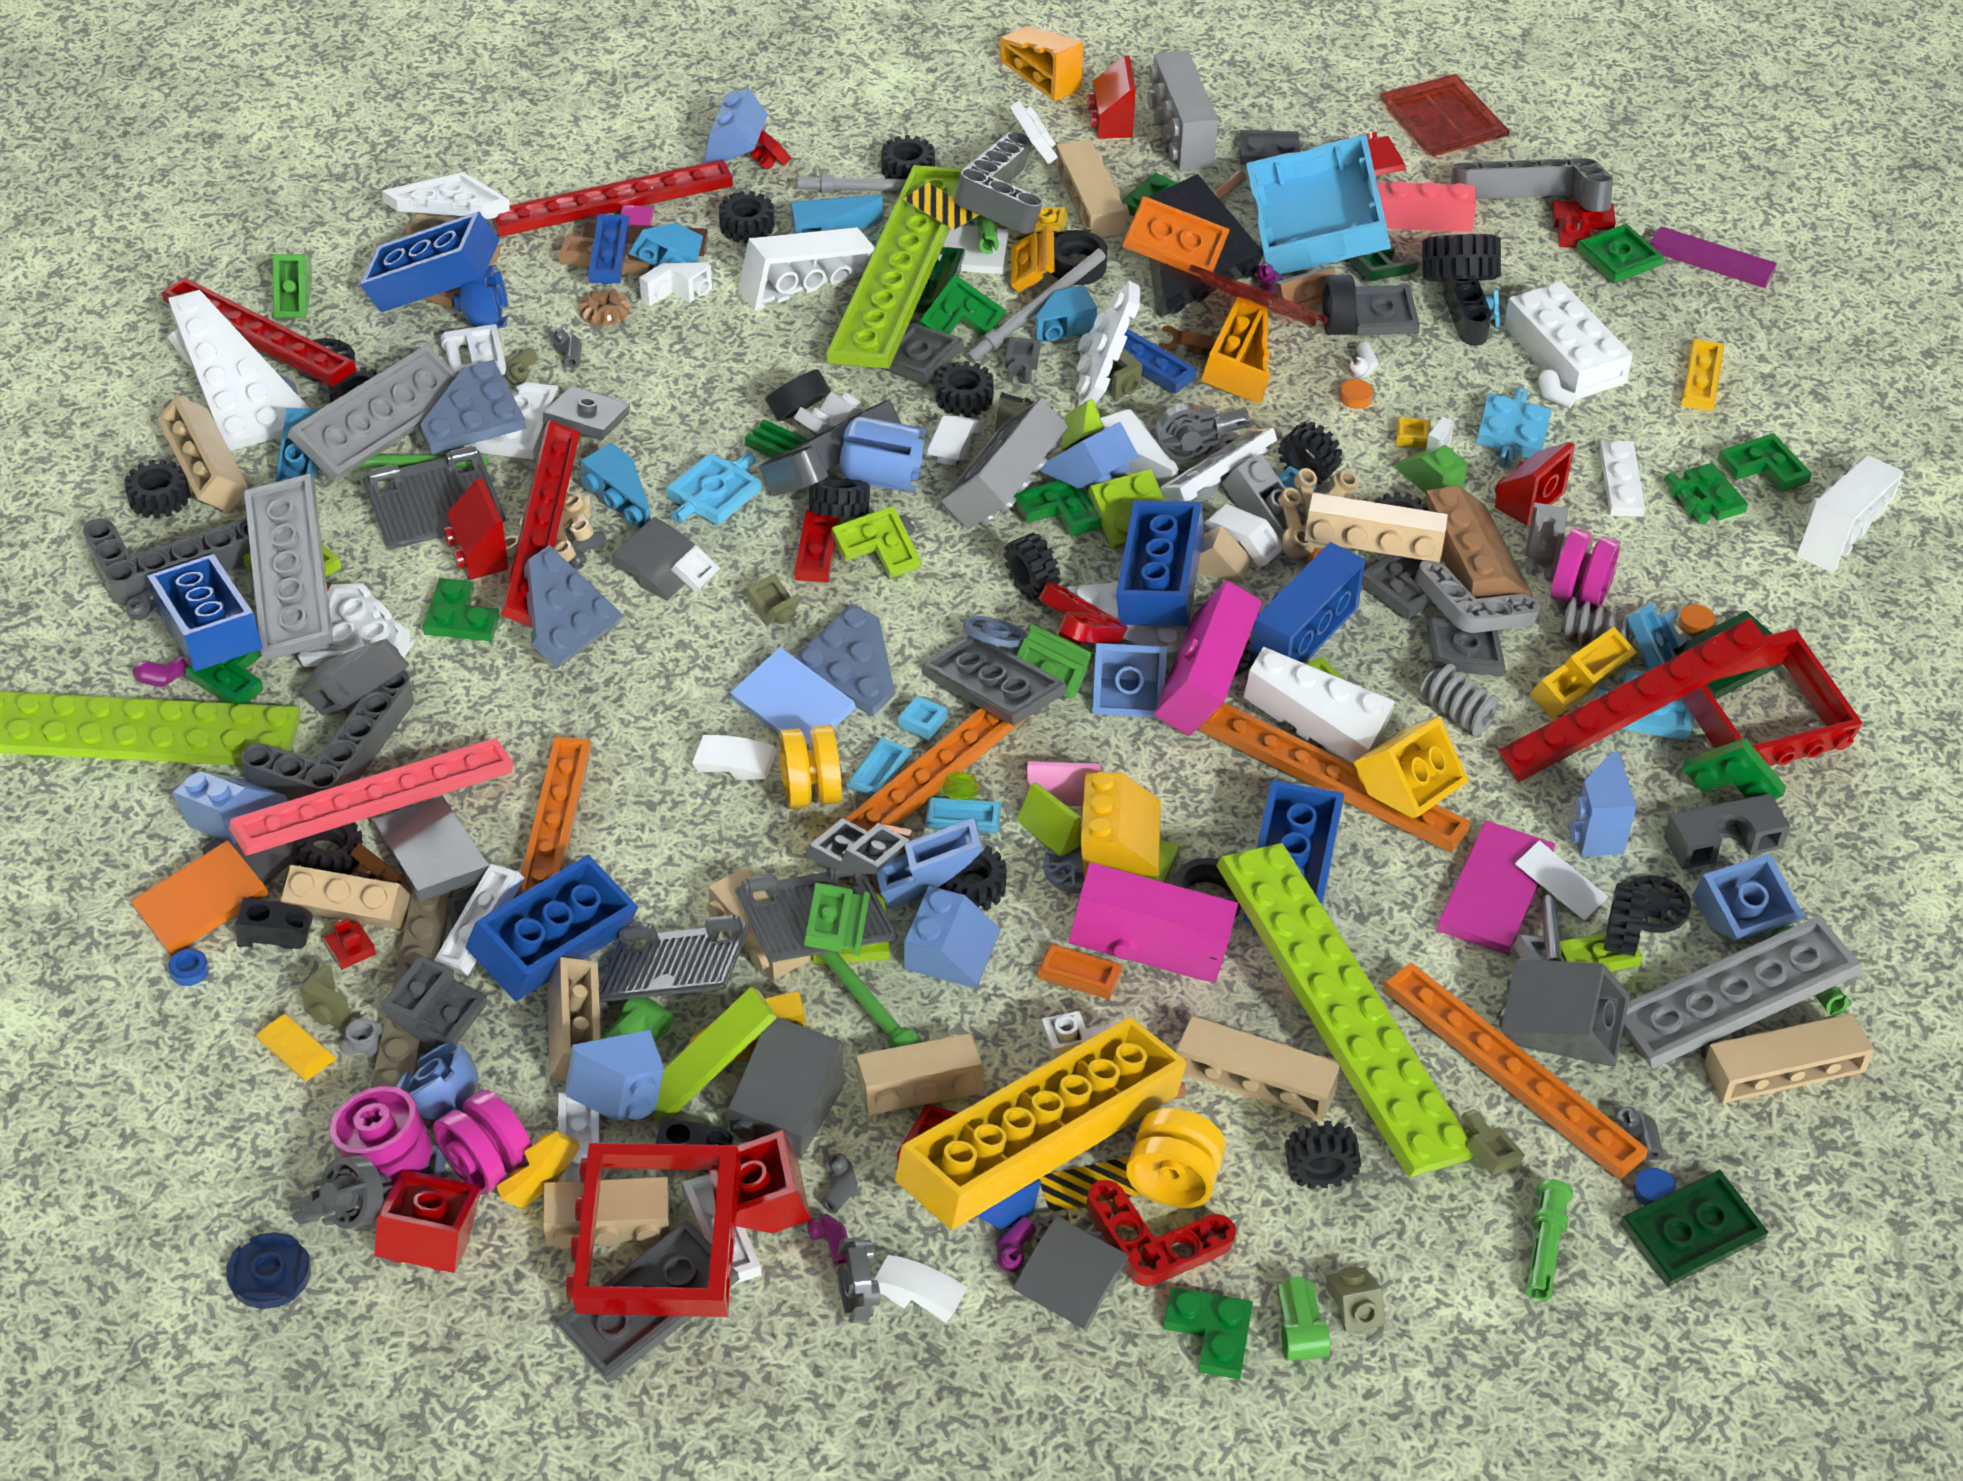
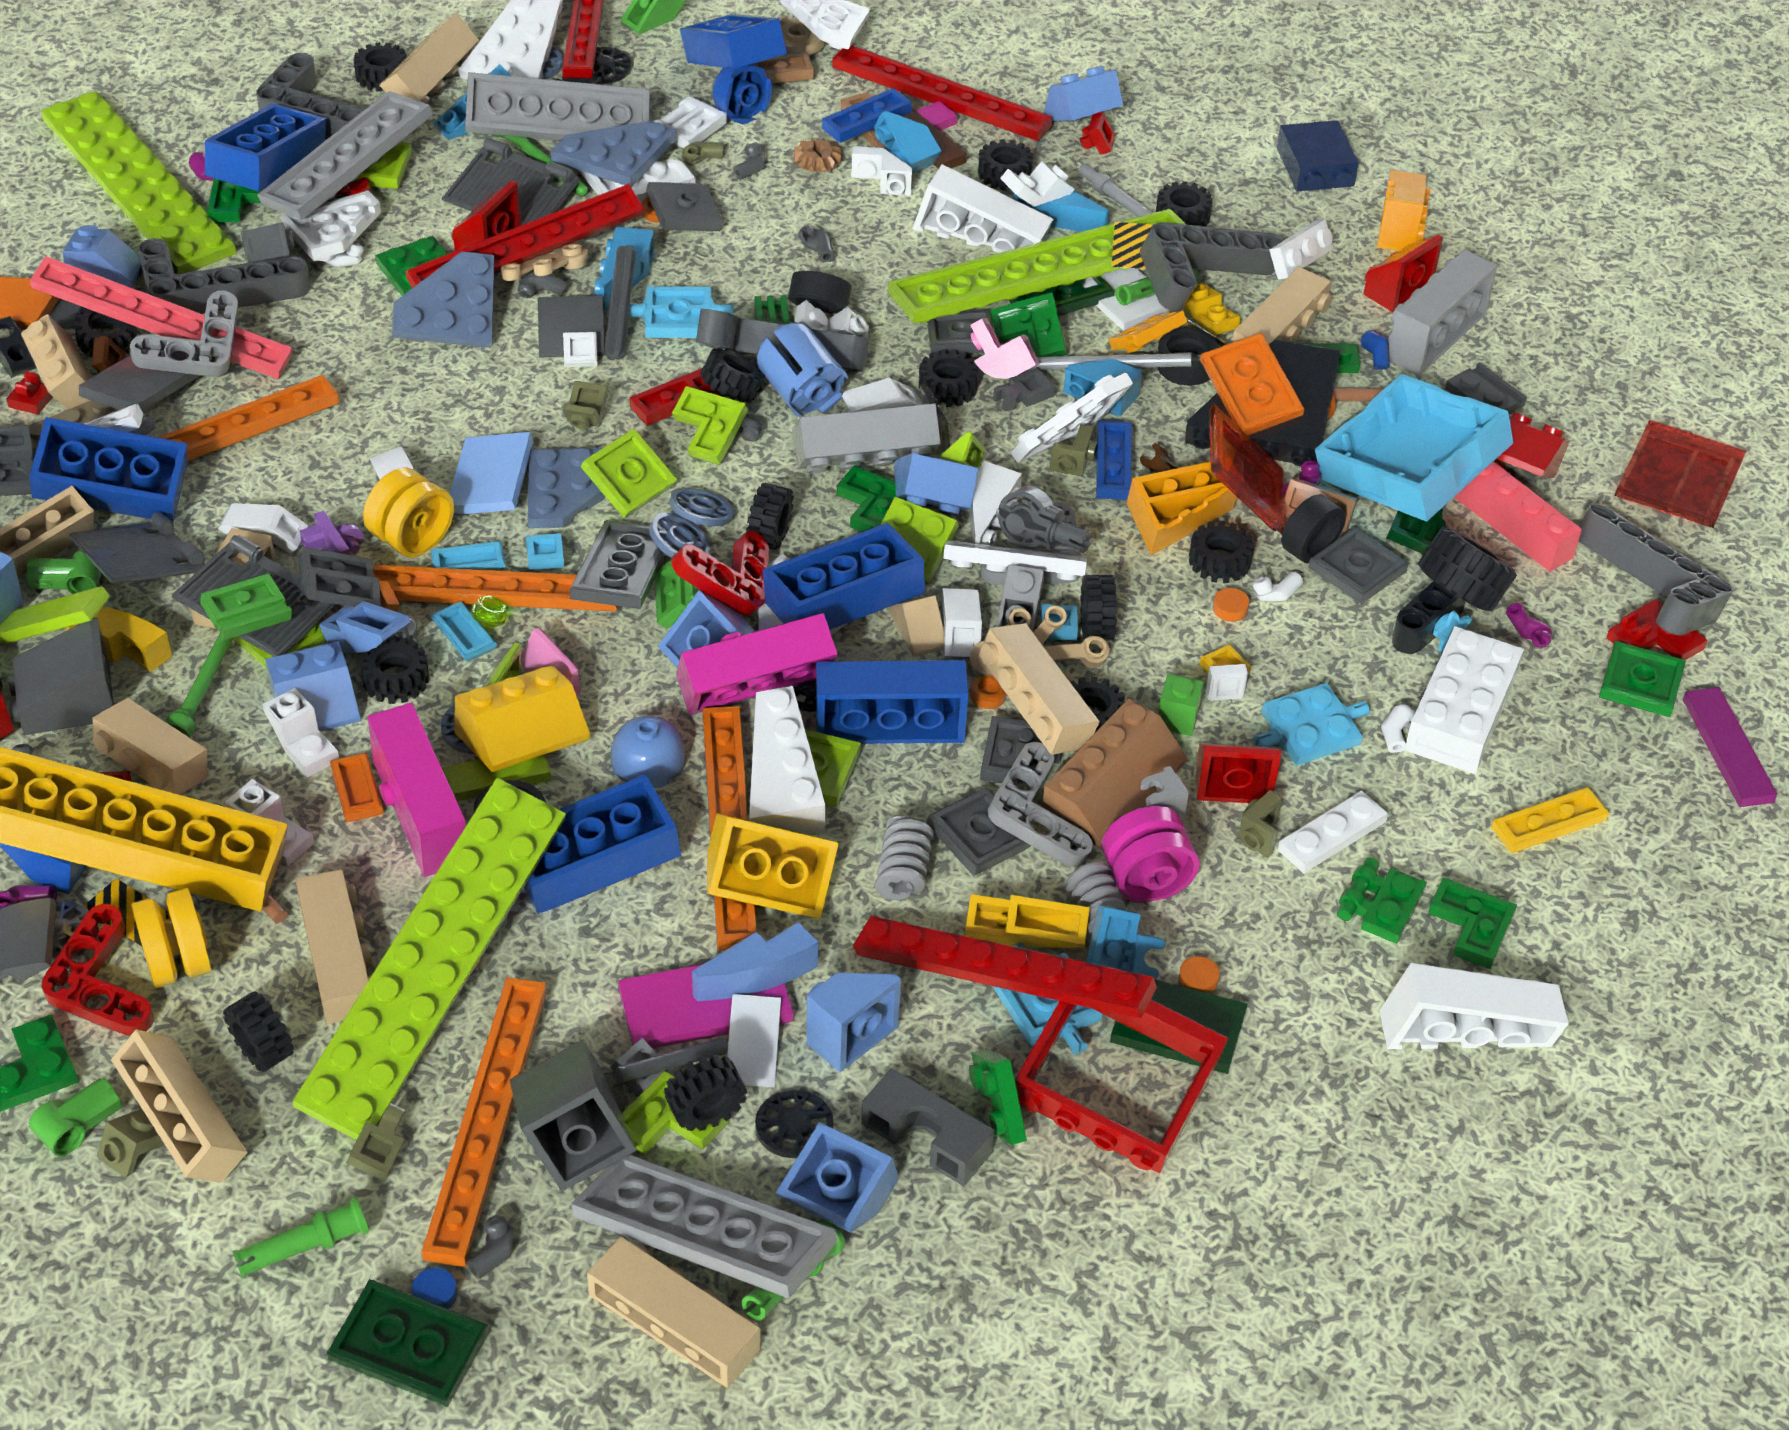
camera: 50 degrees right, 0 degrees up
(447, 787) = (207, 347): none -> light grey beam
(677, 510) = (620, 302): none -> dark grey axle
(706, 868) = (266, 520): none -> white slope
(716, 366) = (818, 241): none -> dark grey arm
(779, 837) = (324, 534): none -> medium lavender hips
(819, 206) = (1041, 186): none -> white slope
(890, 618) = (628, 473): none -> lime plate
(930, 63) = (1317, 155): none -> dark blue brick
(968, 601) = (700, 507): none -> sand blue wheel
(986, 345) = (1002, 360): none -> brick
(997, 977) = (298, 732): none -> white slope
(1171, 163) = (1378, 346): none -> blue arm
(1213, 778) = (650, 748): none -> medium blue cylinder
(1303, 377) = (1216, 564): none -> black tyre
(1358, 1244) = (179, 1106): none -> tan brick
(1505, 829) = (756, 965): none -> medium blue slope
(1523, 271) = (1528, 626): none -> magenta arm
(1588, 507) = (1257, 823): none -> olive bracket

